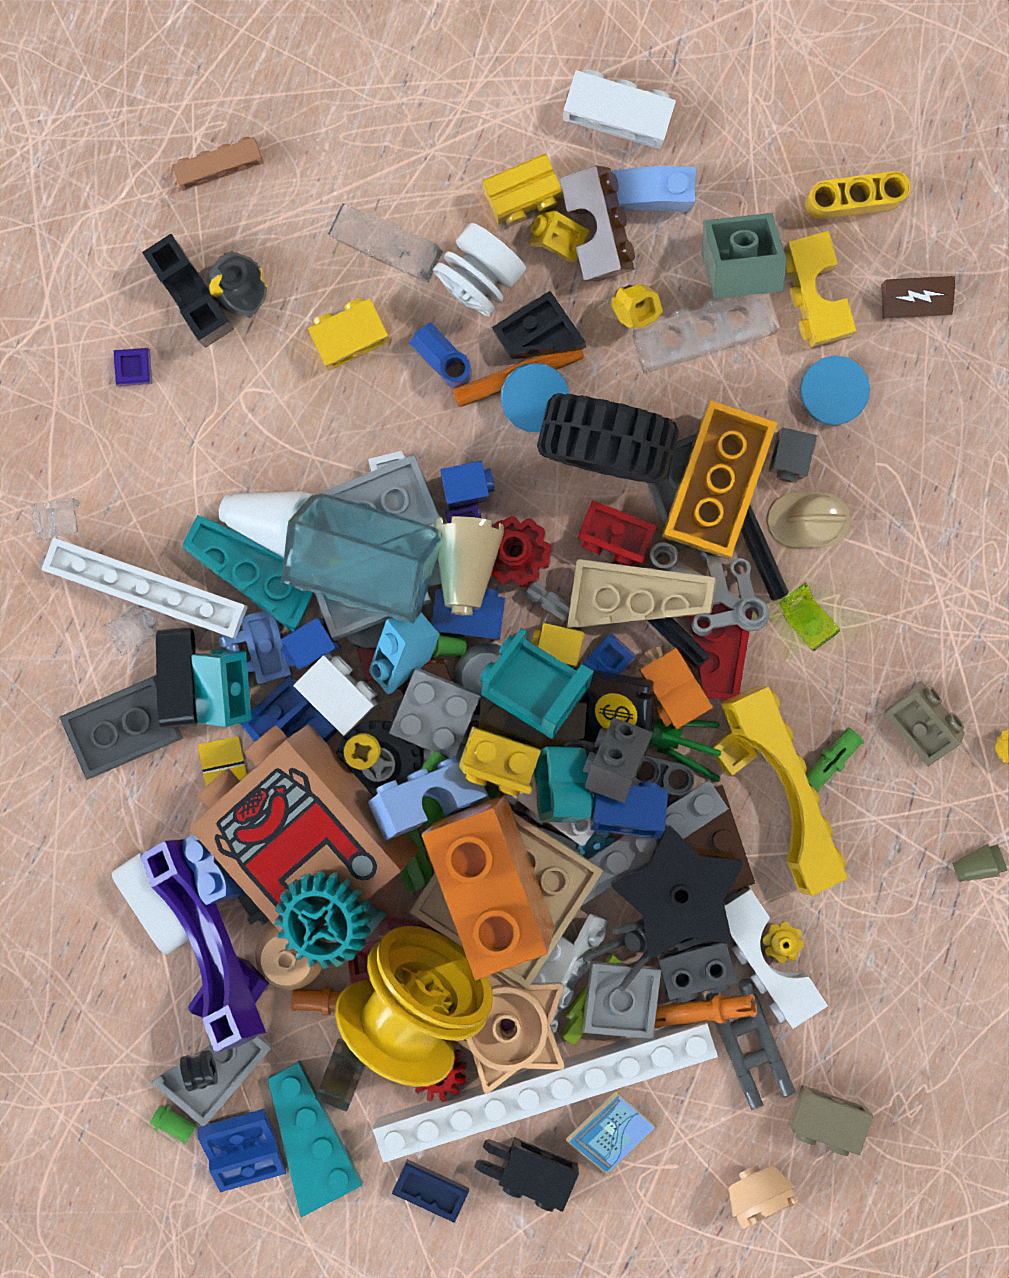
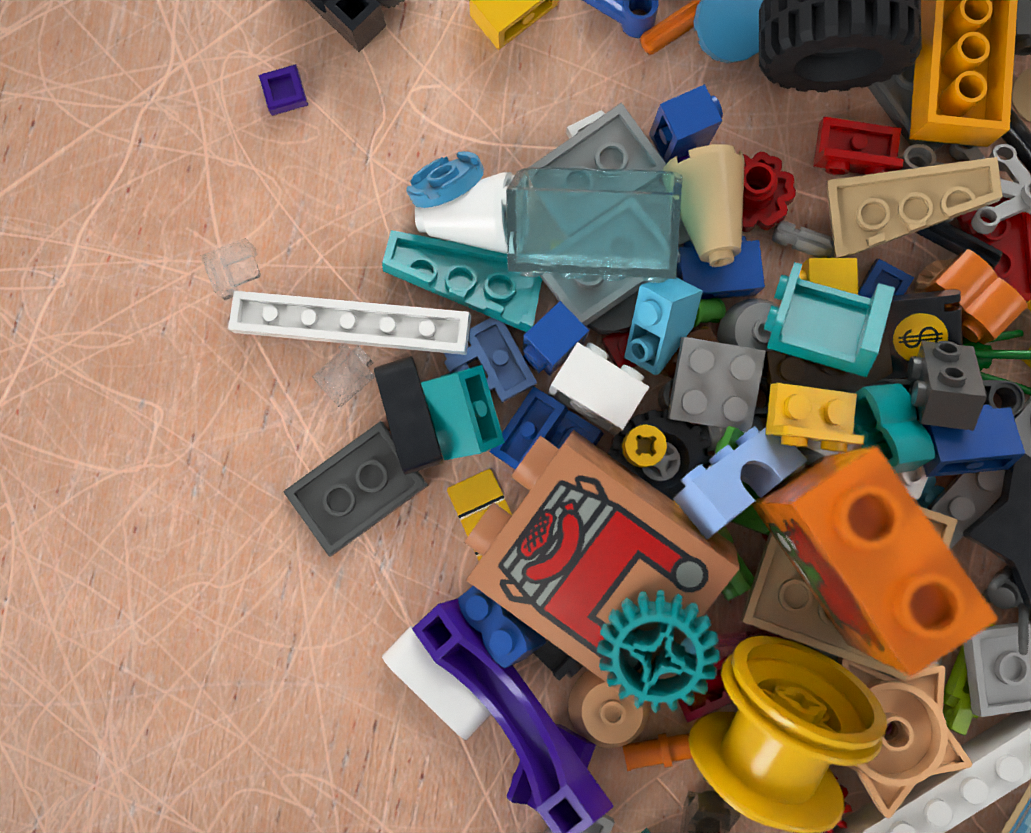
camera: 15 degrees left, 5 degrees down
(251, 484) = (445, 180): none -> dark azure tile

